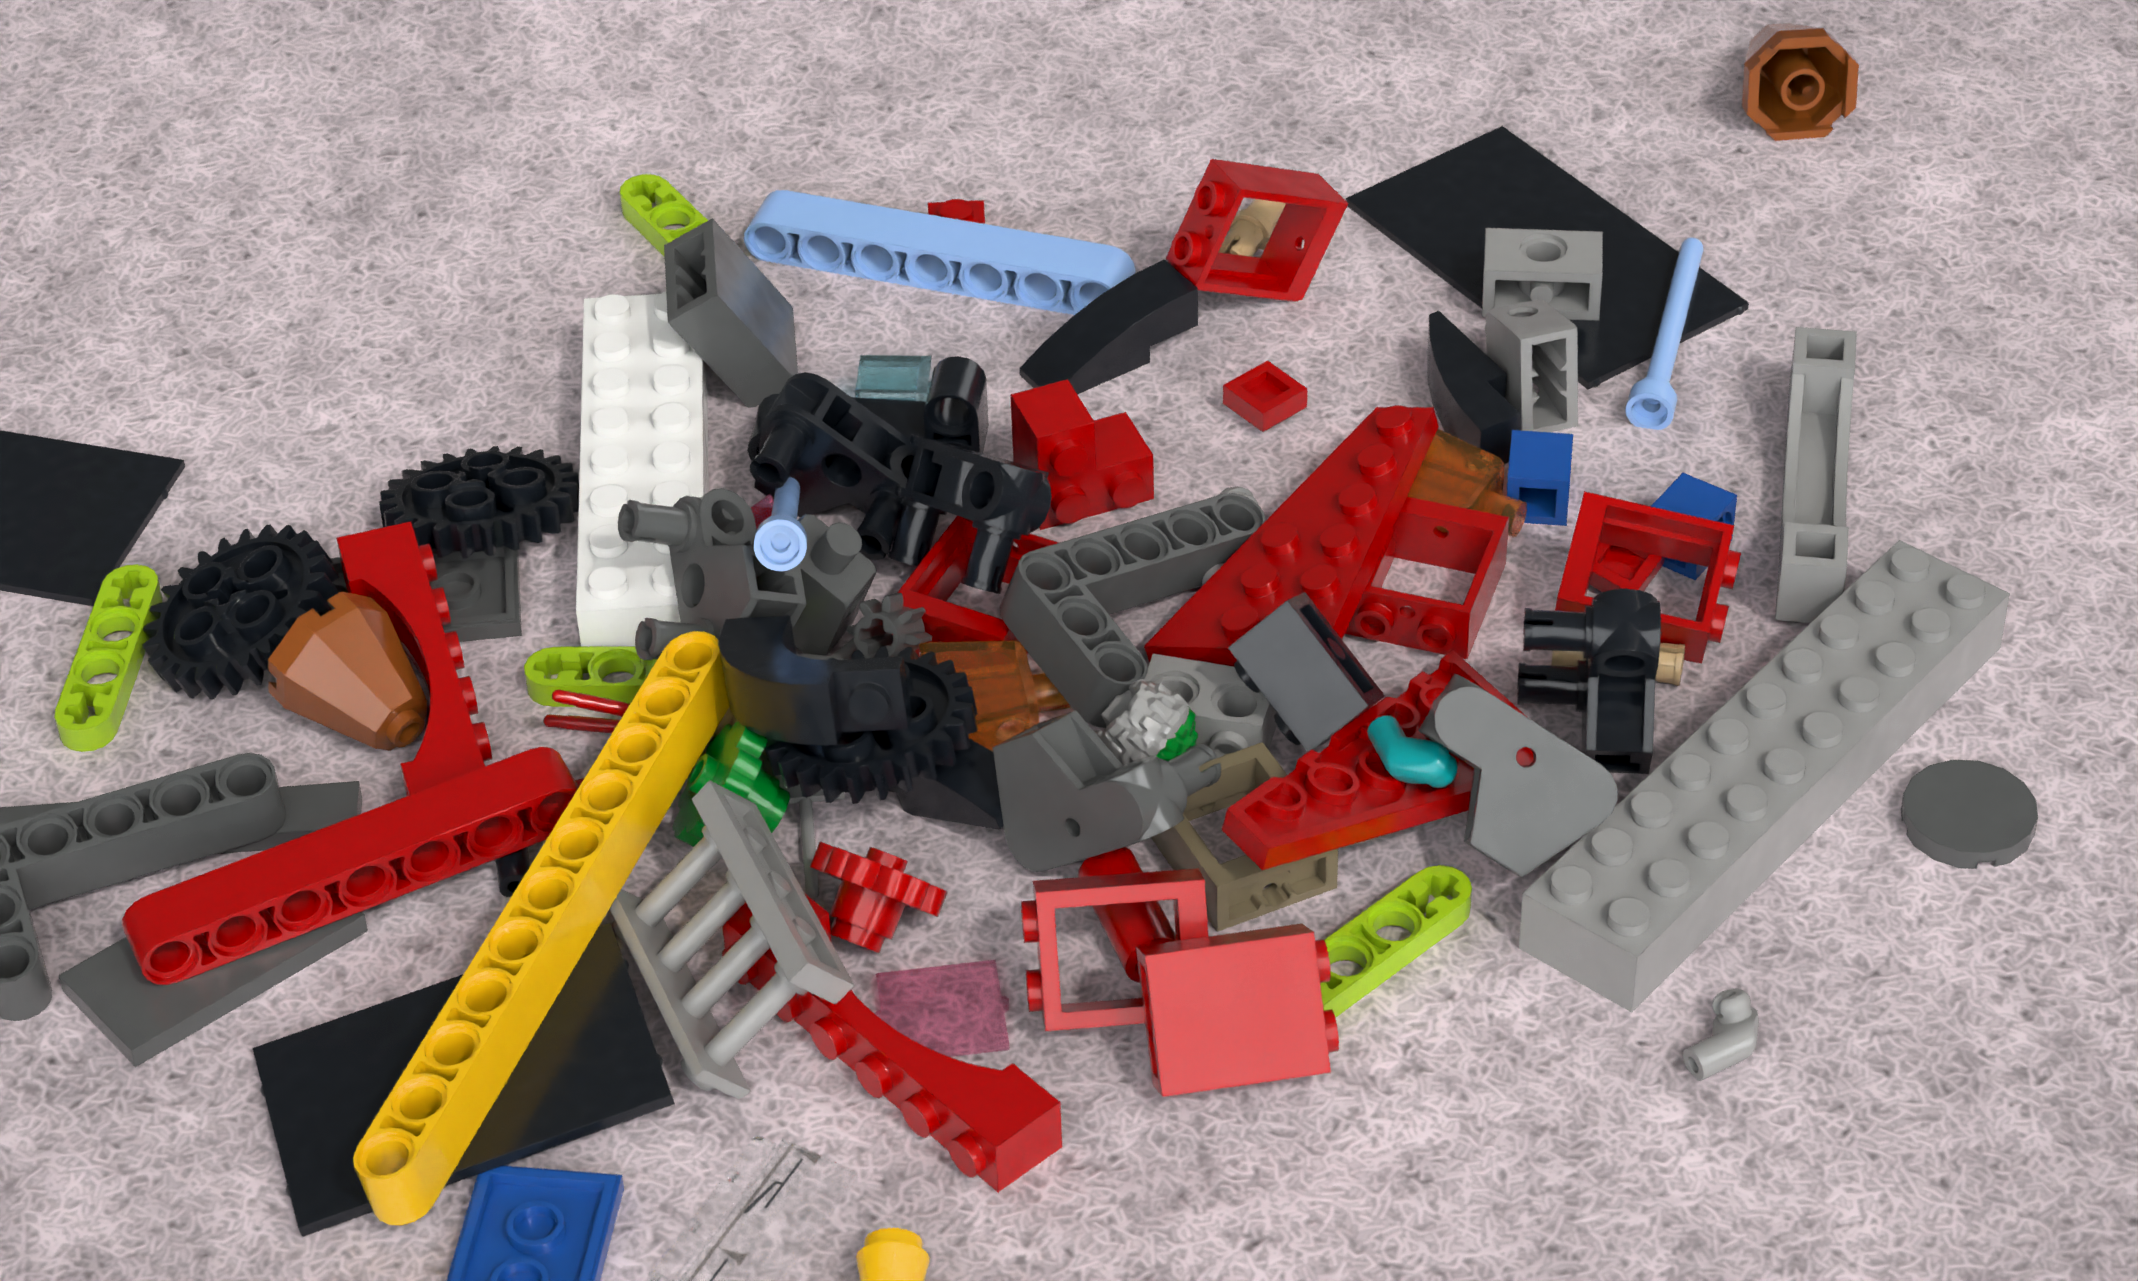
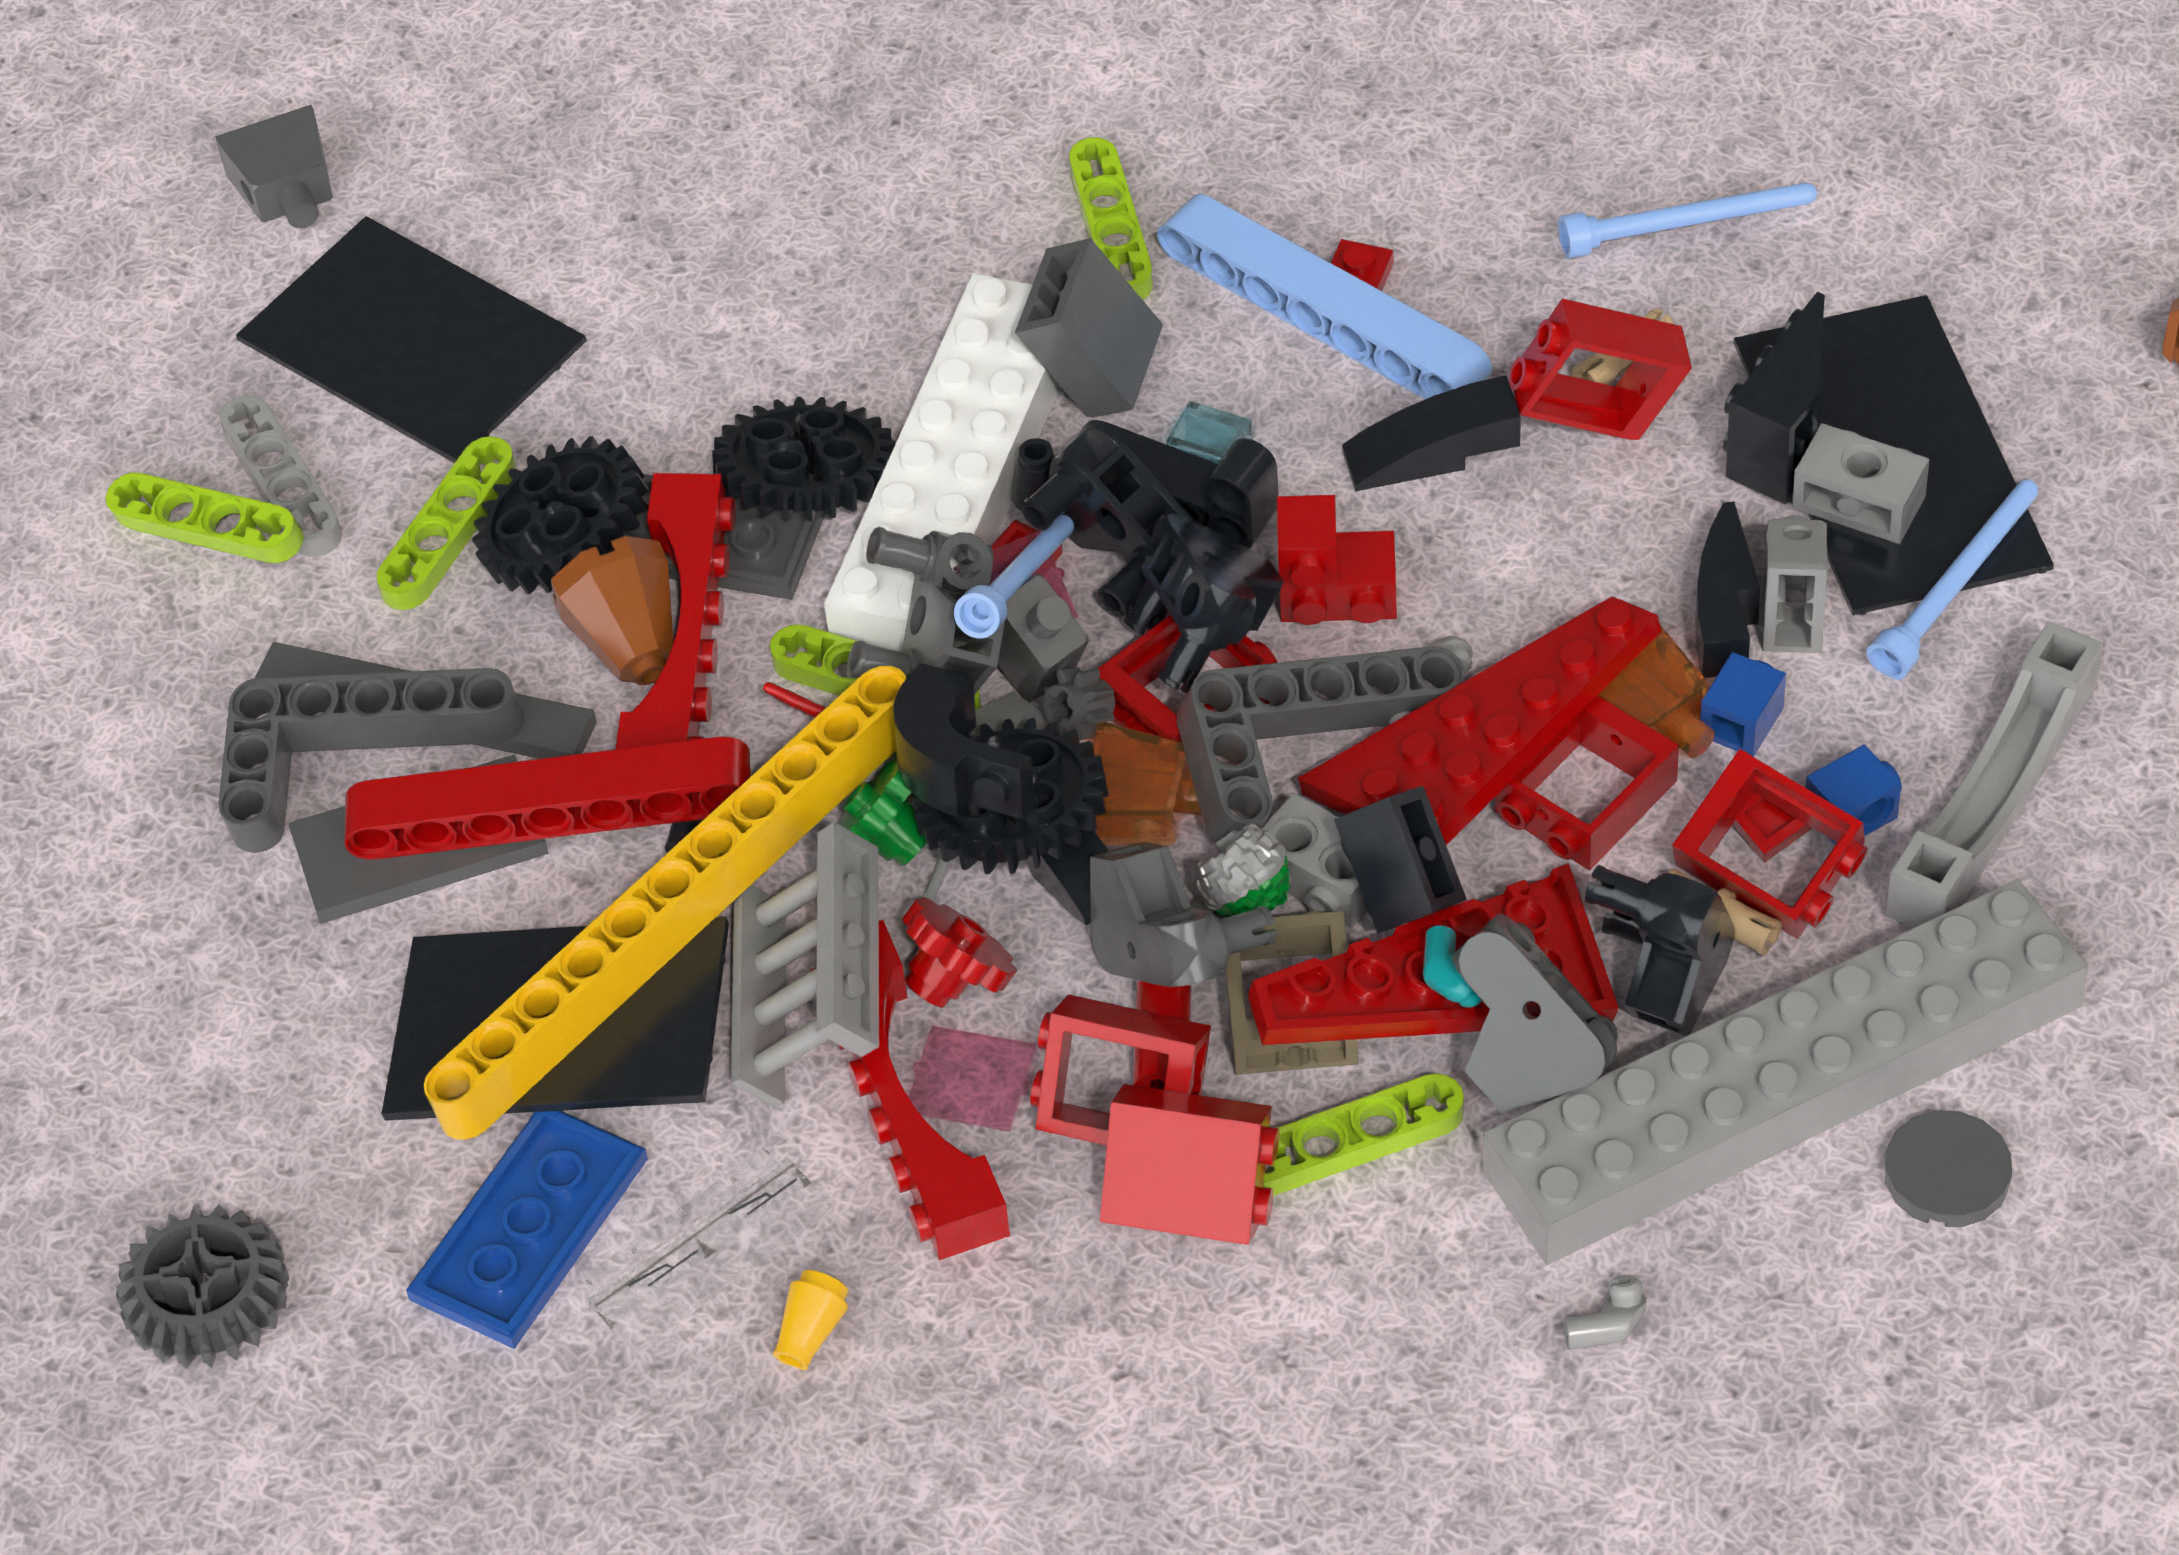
camera: 25 degrees right, 10 degrees up
(731, 457) = (1031, 469): none -> black cone
(1157, 148) = (1583, 233): none -> light blue piece
(1265, 396) = (1540, 542): red plate -> none
(1442, 225) = (1777, 407): none -> black slope

